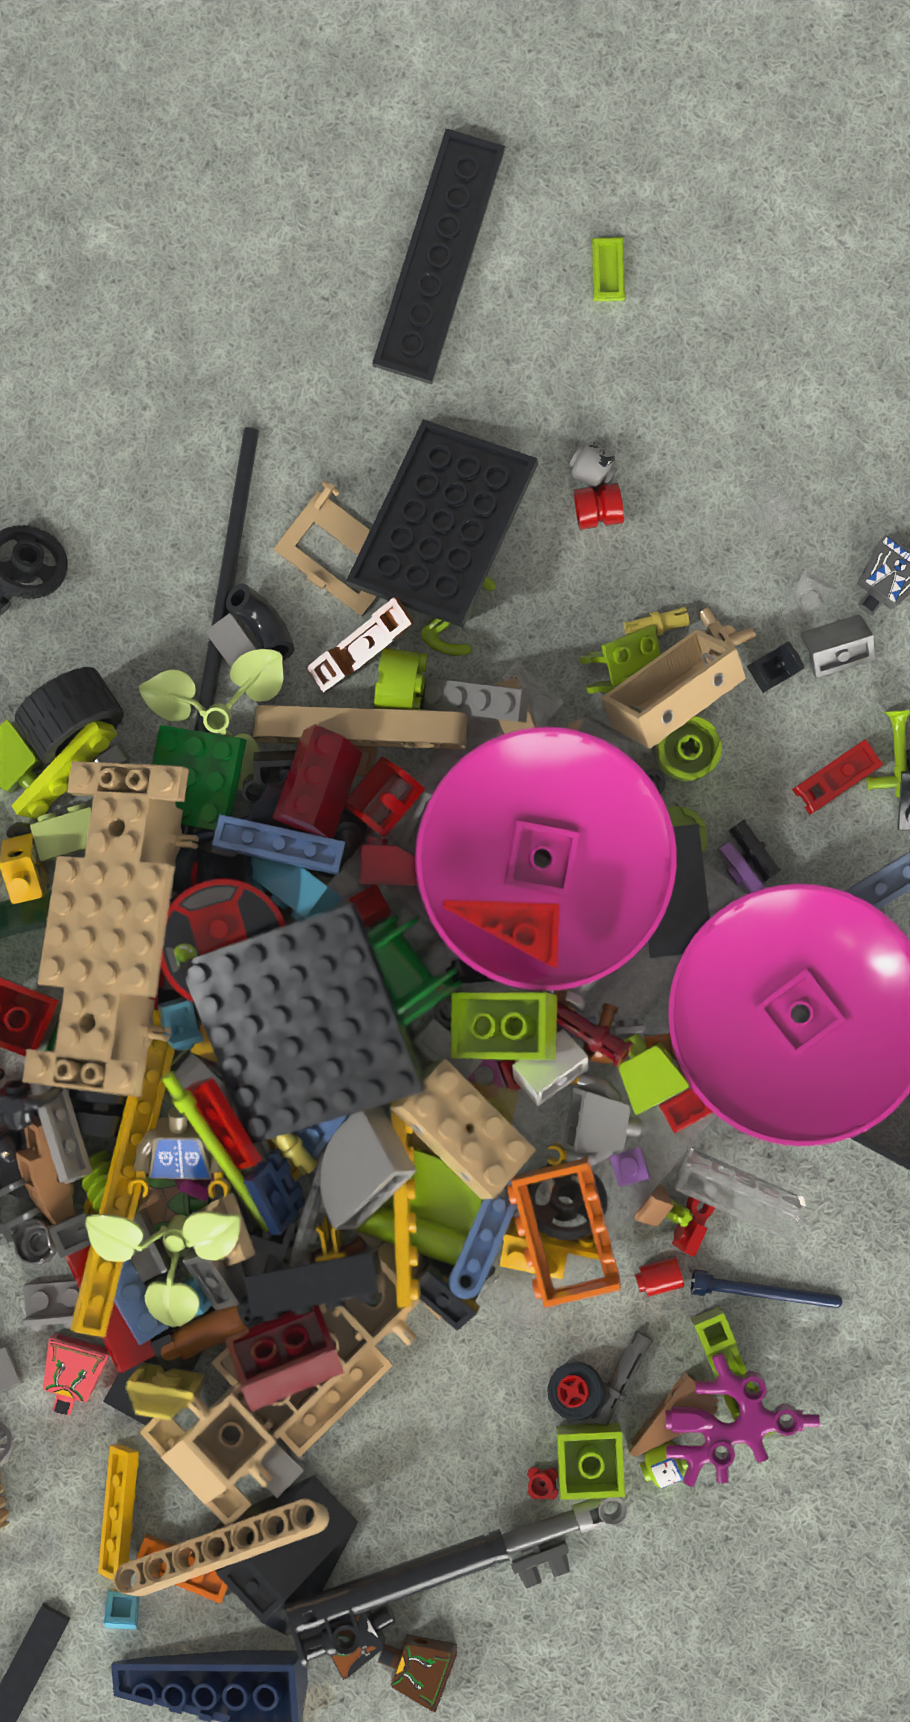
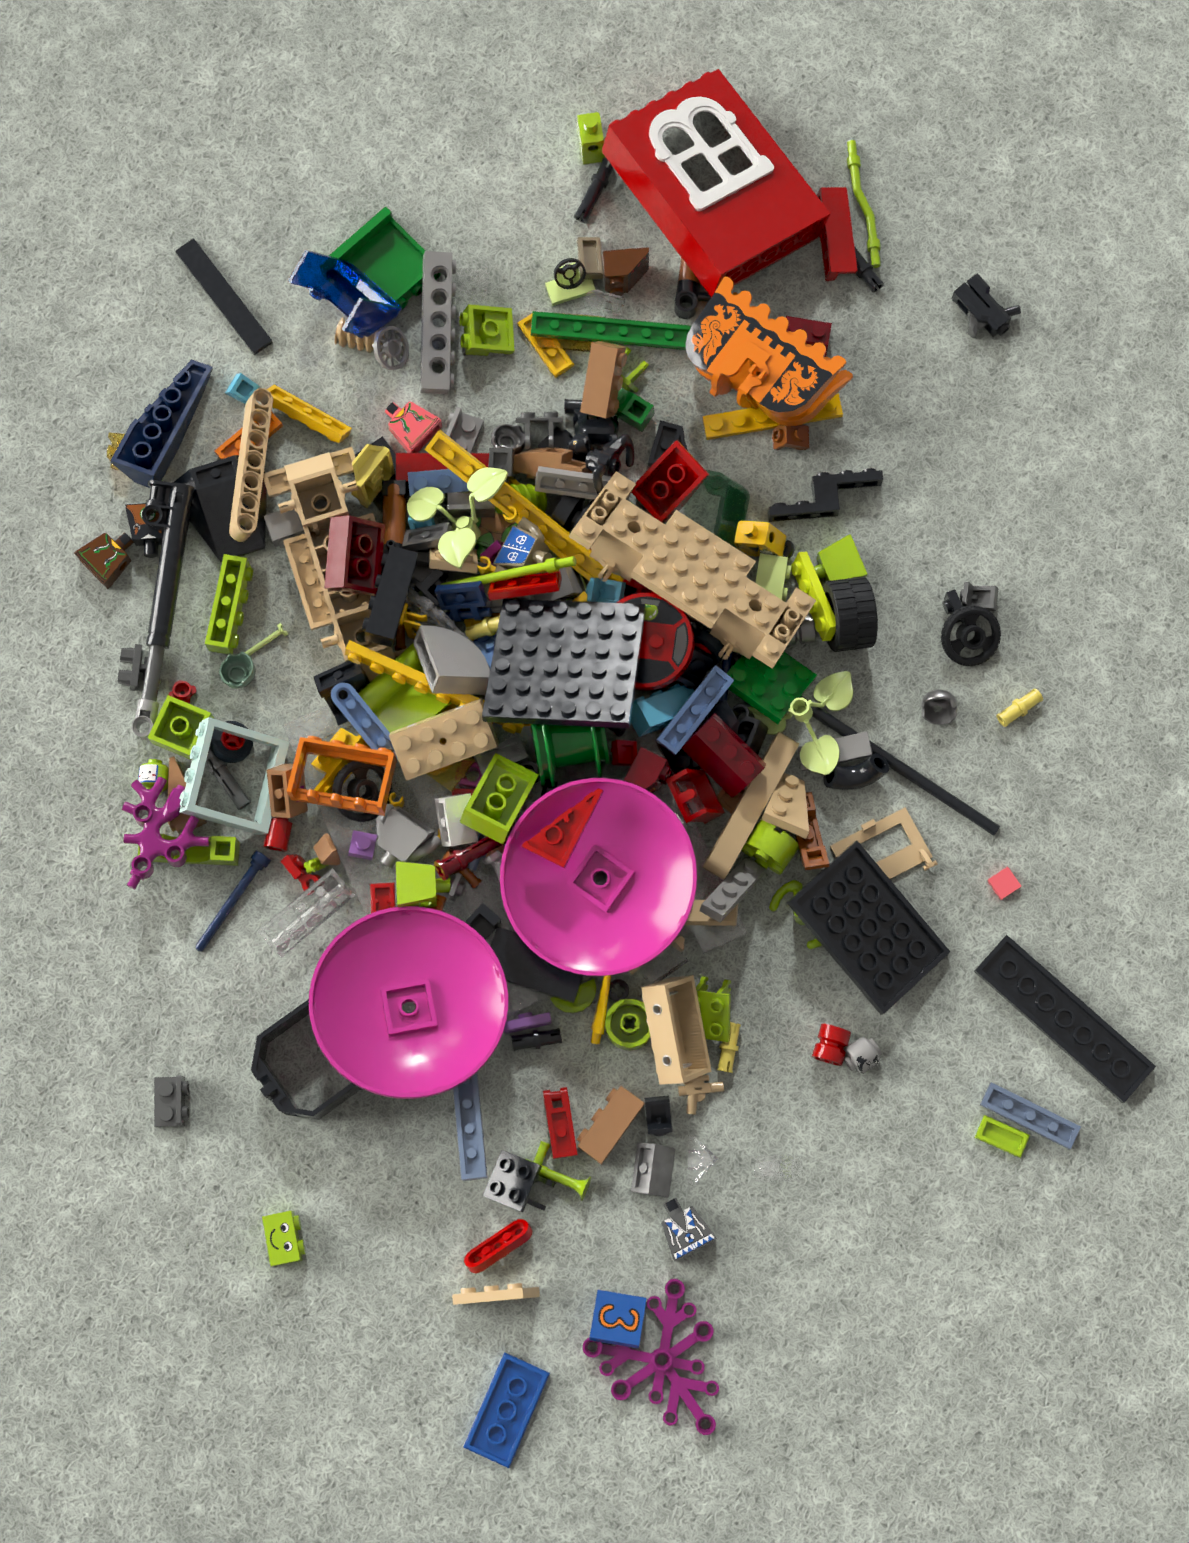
camera: 115 degrees right, 10 degrees down
(87, 467) = (1019, 707): none -> light yellow pin
(129, 549) = (941, 698): none -> flat silver hair
(310, 394) = (1004, 883): none -> coral tile
(343, 681) = (788, 806): none -> tan wing
(409, 1402) = (268, 639): none -> yellowish green piece
(409, 1483) = (228, 604): none -> lime brick
(485, 1429) = (237, 670): none -> sand green hair
(570, 246) = (1030, 1115): none -> sand blue plate
(605, 1307) = (280, 802): none -> medium nougat brick
(611, 1315) = (194, 776): none -> light aqua window
(654, 977) = (484, 921): none -> black panel
(699, 787) = (600, 1012): none -> yellow bar
(812, 718) = (609, 1124): none -> medium nougat brick

